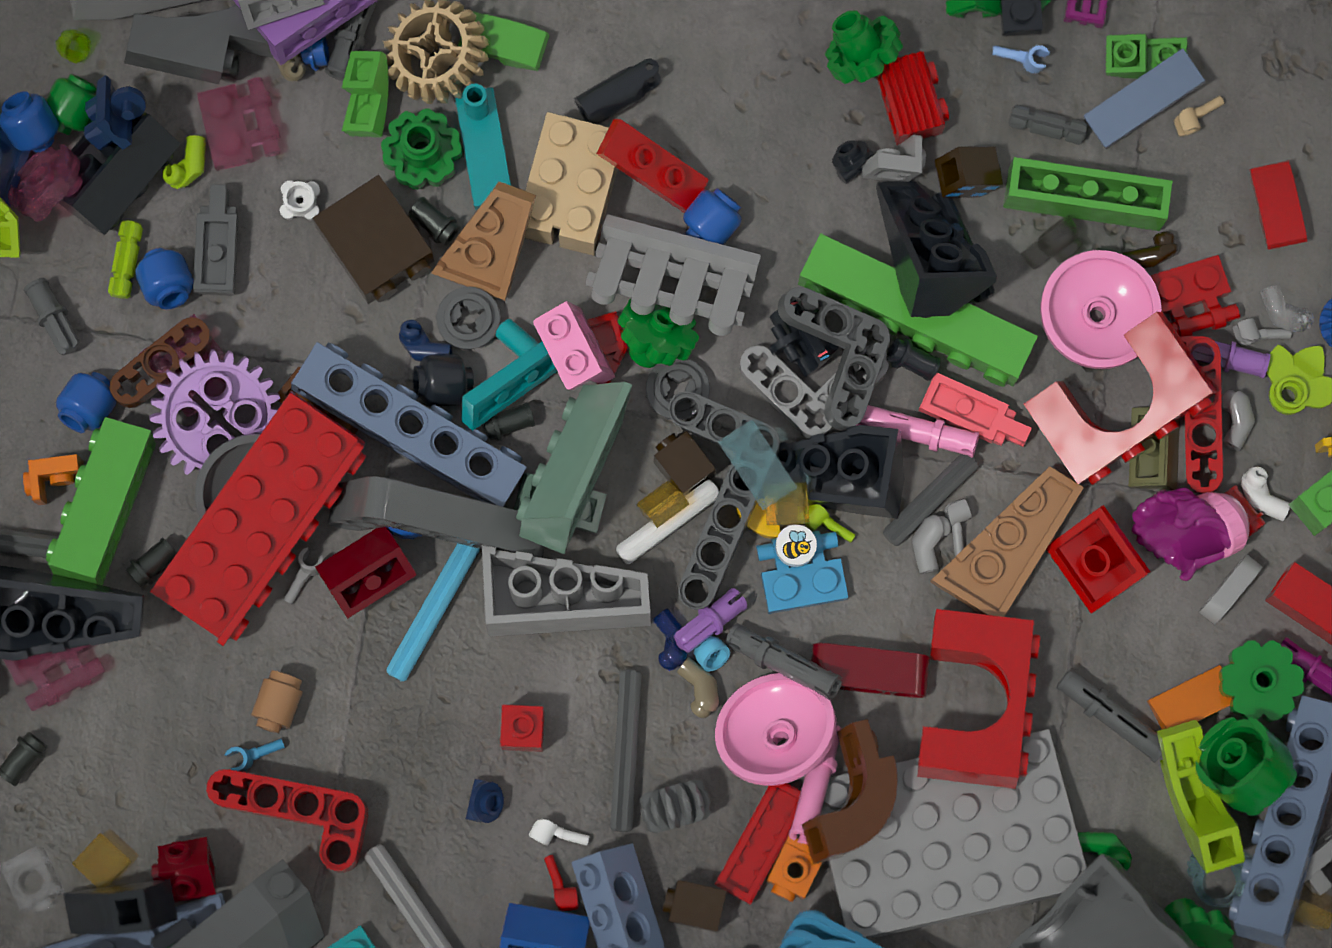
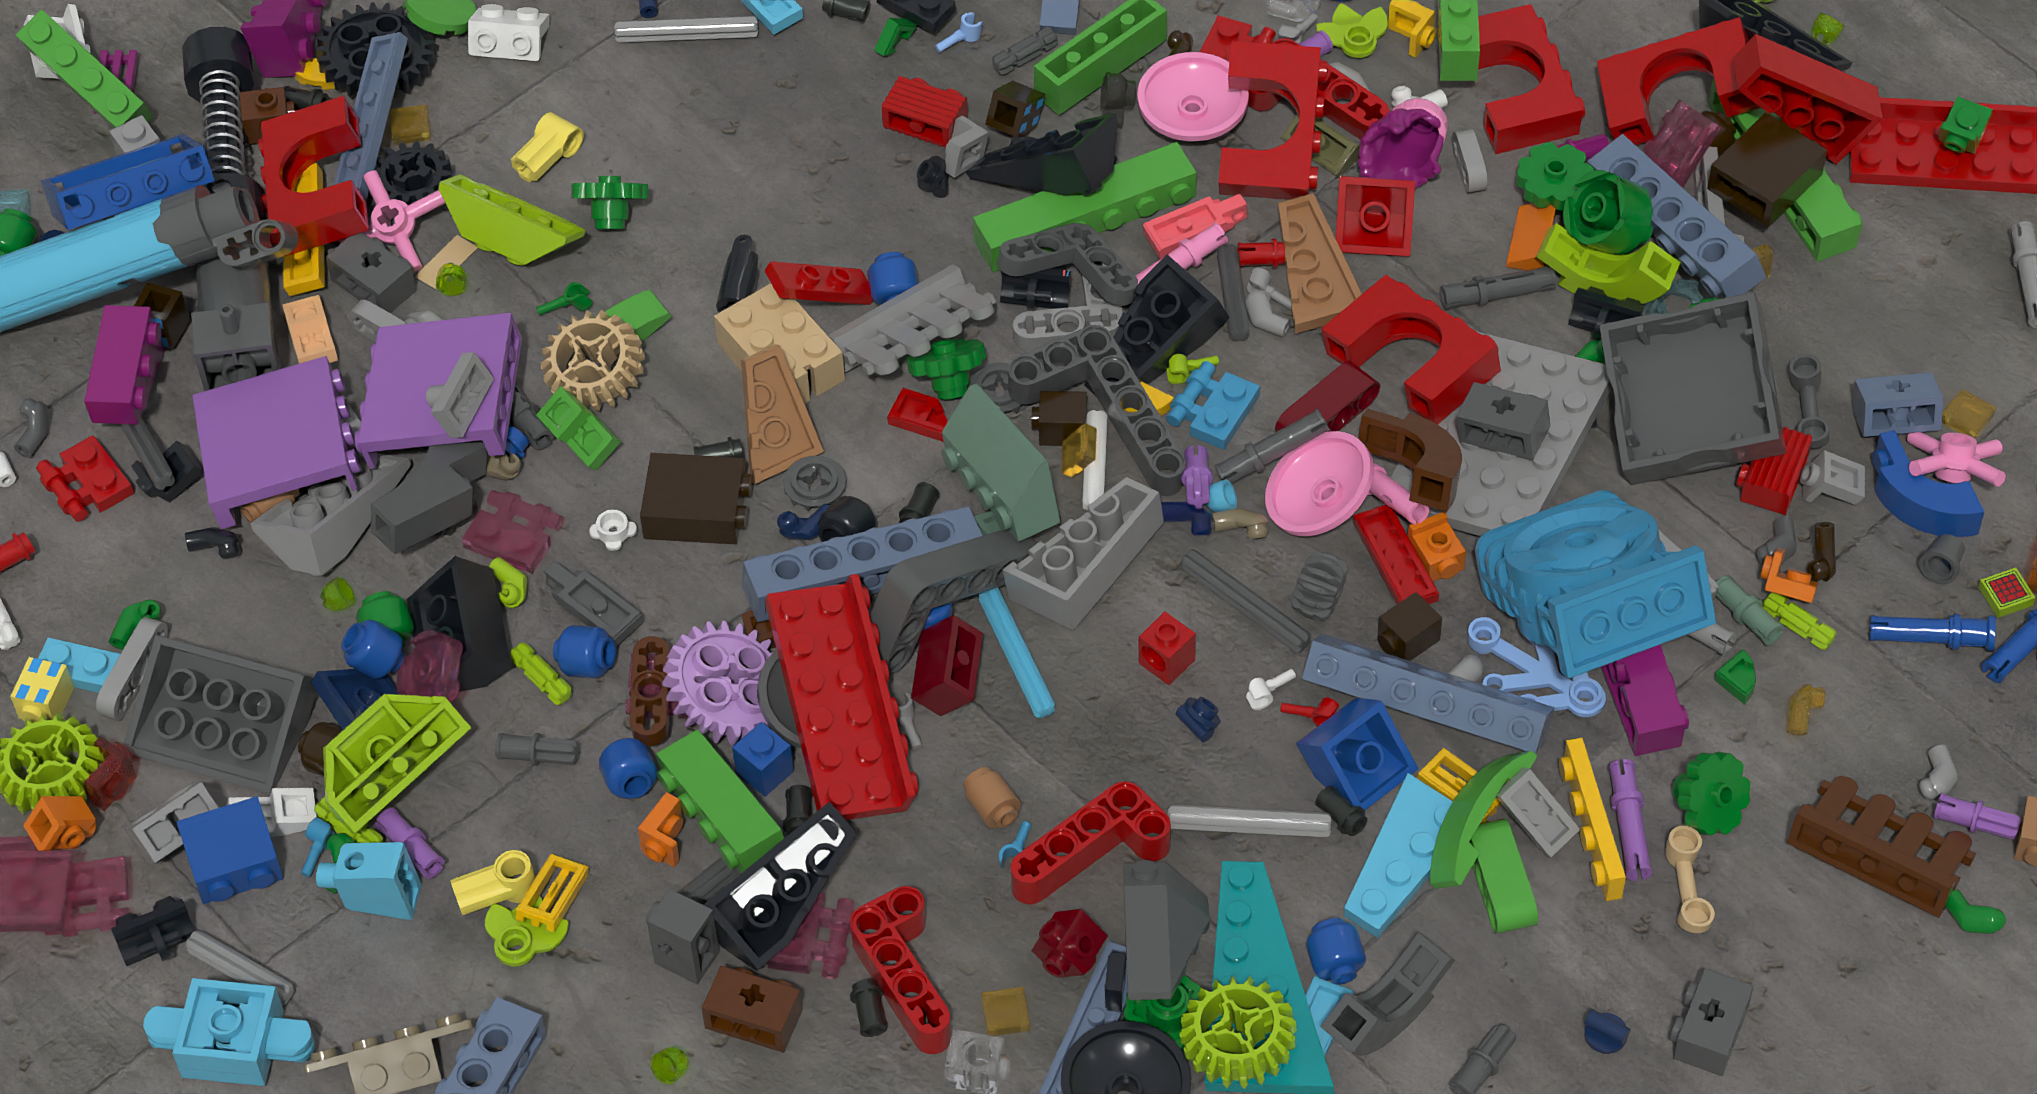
camera: 45 degrees left, 25 degrees down
(71, 765) = (907, 975): none -> red beam
(113, 114) = (427, 581): dark blue hips -> none
(121, 908) = (1055, 1005): black slope -> none
(172, 498) = (763, 759): none -> blue brick
(417, 166) = (655, 424): green plant -> none
(482, 141) = (689, 386): teal piece -> none
(513, 380) = (894, 460): teal piece -> none
(573, 346) = (906, 413): bright pink bracket -> none
(757, 464) = (1111, 351): clear light blue tile -> none
(791, 508) = (1155, 367): clear yellow tile -> none
(795, 545) = (1191, 384): tile -> none
(862, 46) = (859, 107): green plant -> none
(913, 359) = (1121, 231): black pin -> none
(945, 861) = (1503, 420): none -> dark grey brick
(990, 494) = (1261, 253): none -> red pin
(1150, 830) = (1595, 308): none -> black hips

